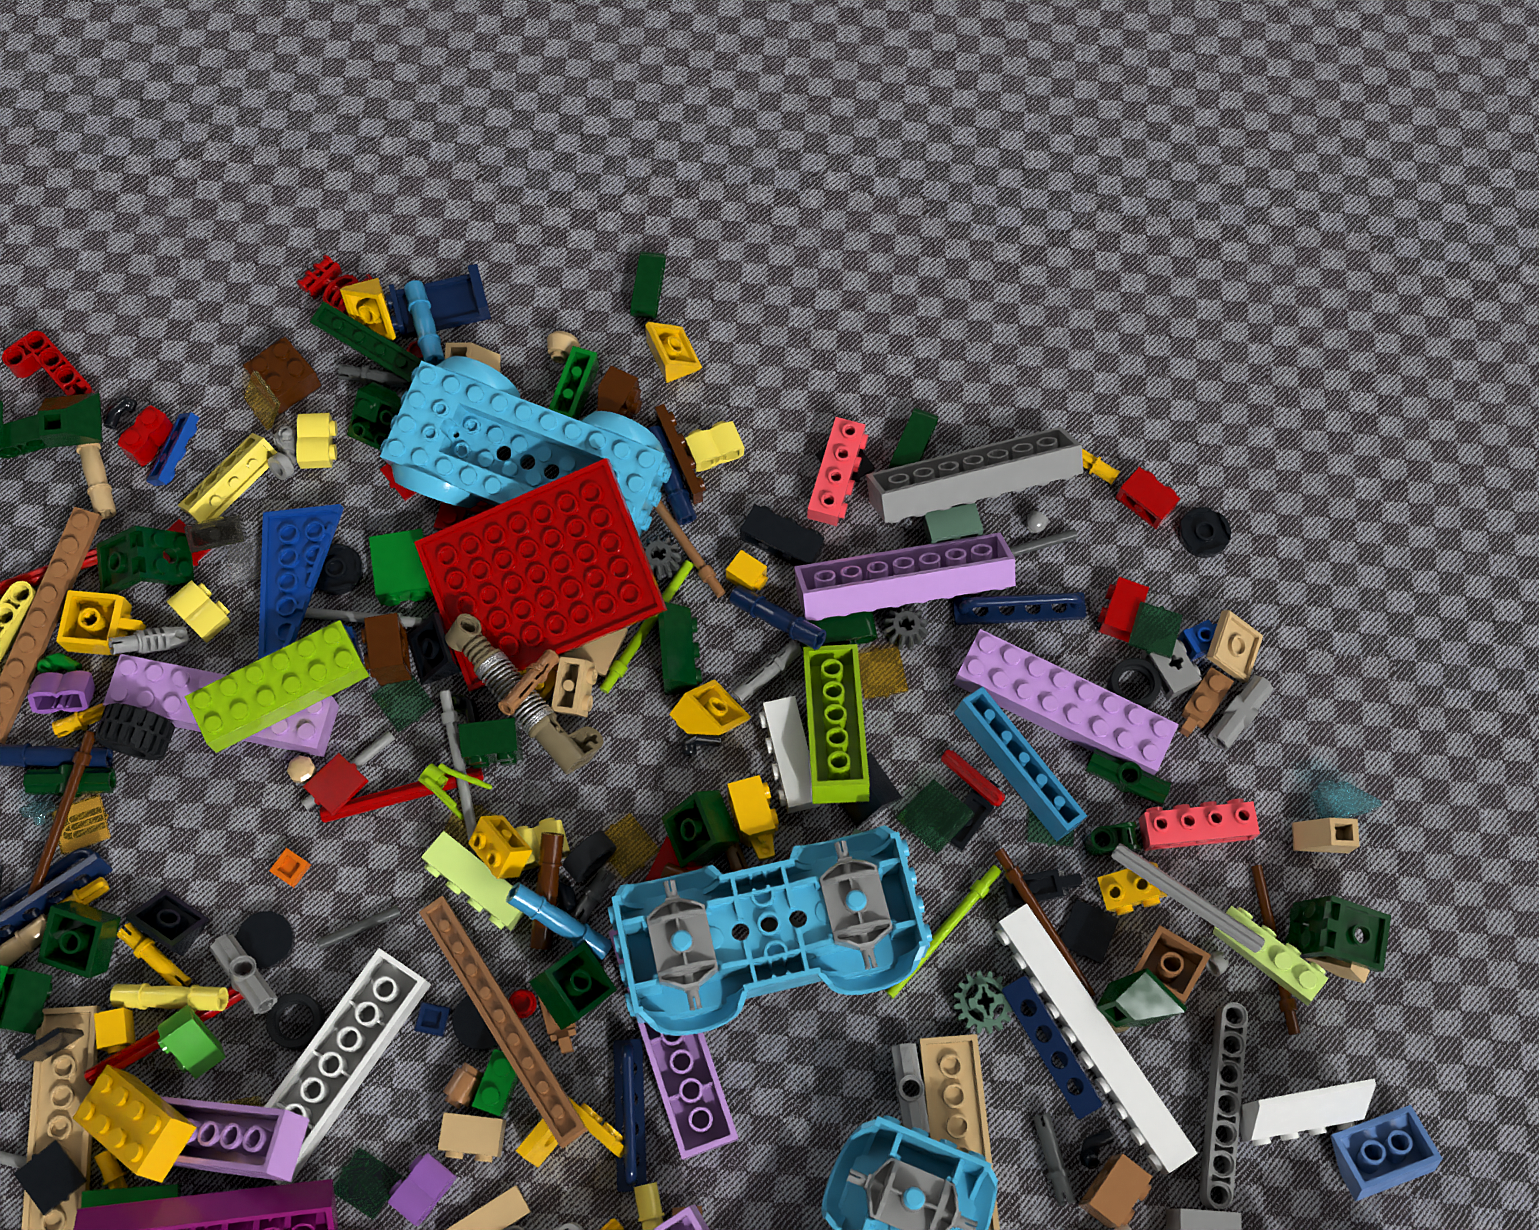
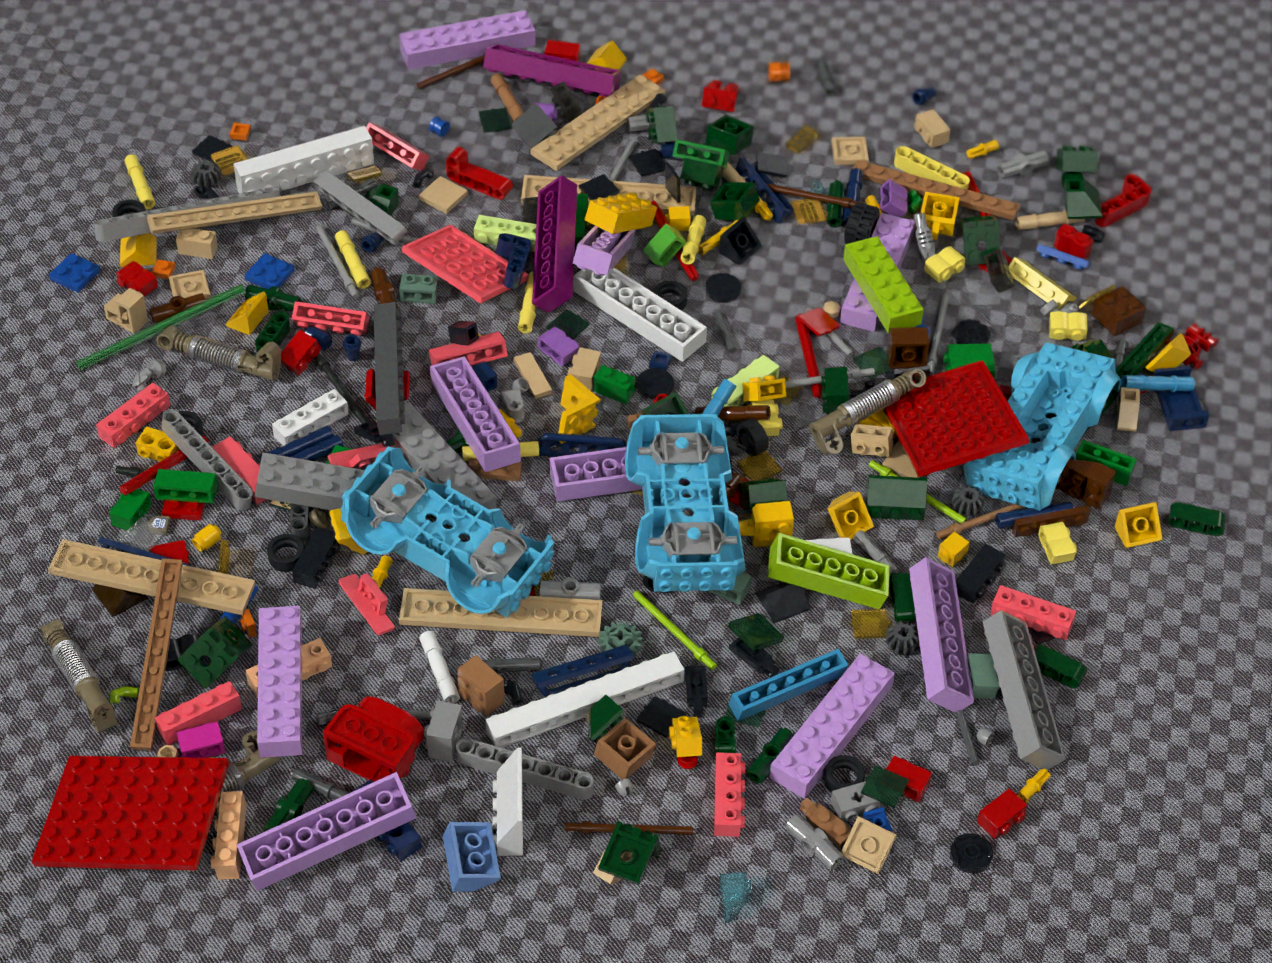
camera: 100 degrees right, 20 degrees down
(250, 986) = (702, 269): light grey piece -> none
(290, 867) = (766, 299): orange plate -> none
(291, 562) = (980, 308): blue wing -> none
(435, 779) = (815, 362): lime plant -> none
(463, 1086) = (616, 364): medium nougat brick -> none
(504, 1023) = (651, 378): medium nougat plate -> none
(535, 674) = (856, 386): medium nougat pin -> none
(560, 345) = (1142, 463): tan cone -> none
(692, 742) = (823, 505): black arm -> none
(778, 617) = (913, 556): dark blue piece -> none
(973, 778) = (781, 655): red axle -> none
(1014, 875) = (704, 666): reddish brown bar -> none
(1073, 603) = (916, 733): dark blue piece -> none
(1188, 898) = (670, 750): light grey axle -> none
(1277, 960) = (626, 807): yellowish green brick -> none
(1326, 835) = (707, 876): tan slope -> none

